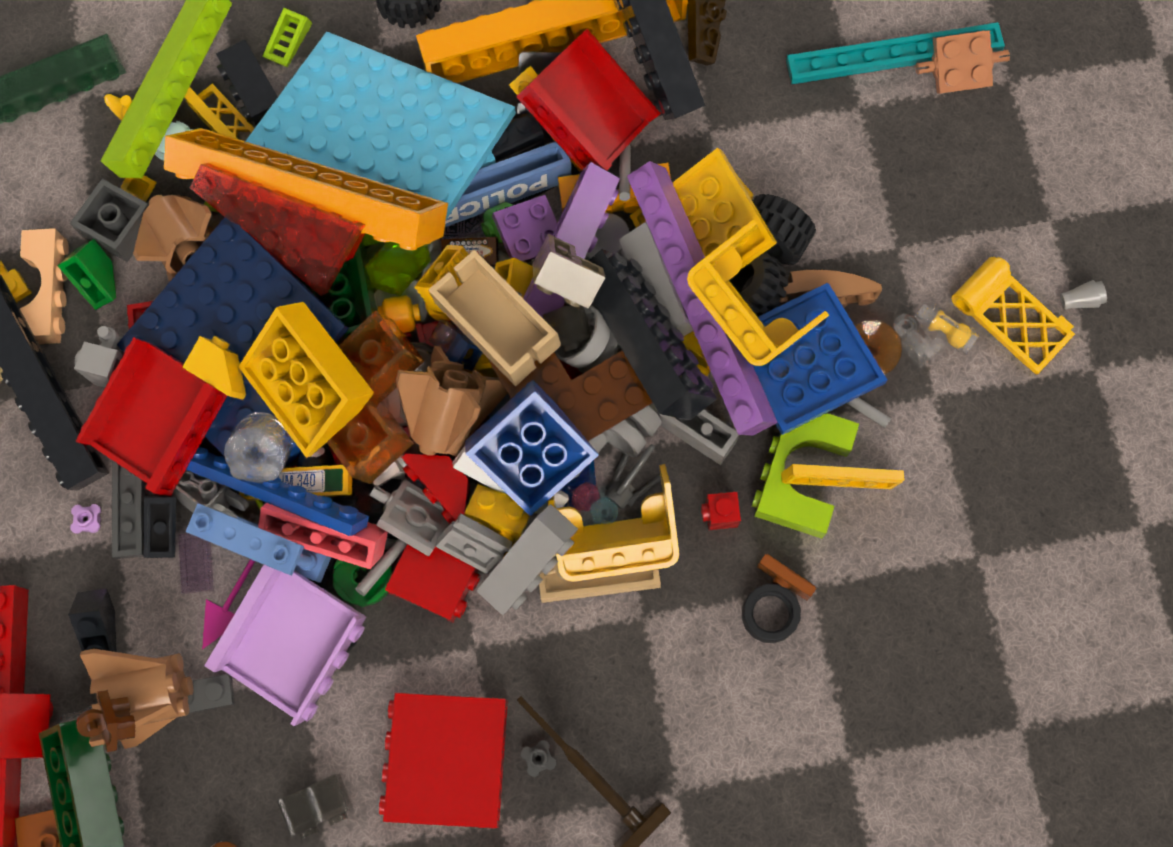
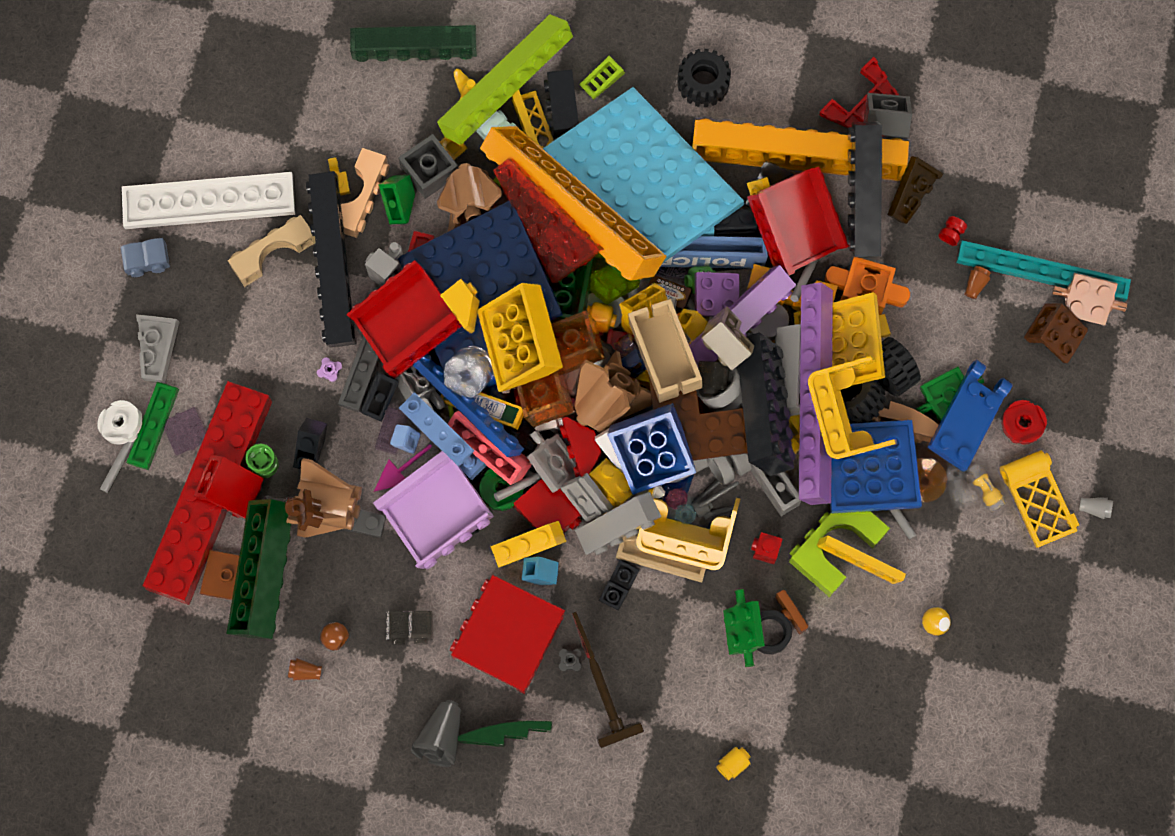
camera: 20 degrees right, 0 degrees up
(39, 672) = (262, 460): none -> bright green wheel
(216, 565) = (405, 438): none -> light blue slope
(424, 634) = (528, 544): none -> yellow brick
(453, 661) = (540, 571): none -> dark azure brick
(560, 634) = (619, 584): none -> black slope
(698, 138) = (866, 278): none -> orange brick
(738, 623) = (744, 628): none -> green plate
(771, 45) = (952, 231): none -> red wheel
(800, 801) = (734, 763): none -> yellow brick
(825, 95) = (977, 281): none -> dark orange cone
(855, 237) = (941, 391): none -> green plate
(890, 253) = (968, 418): none -> blue hinge
(943, 111) = (1057, 331): none -> reddish brown bracket
(951, 248) = (1018, 433): none -> red plate
(963, 512) = (936, 621): none -> yellow piece

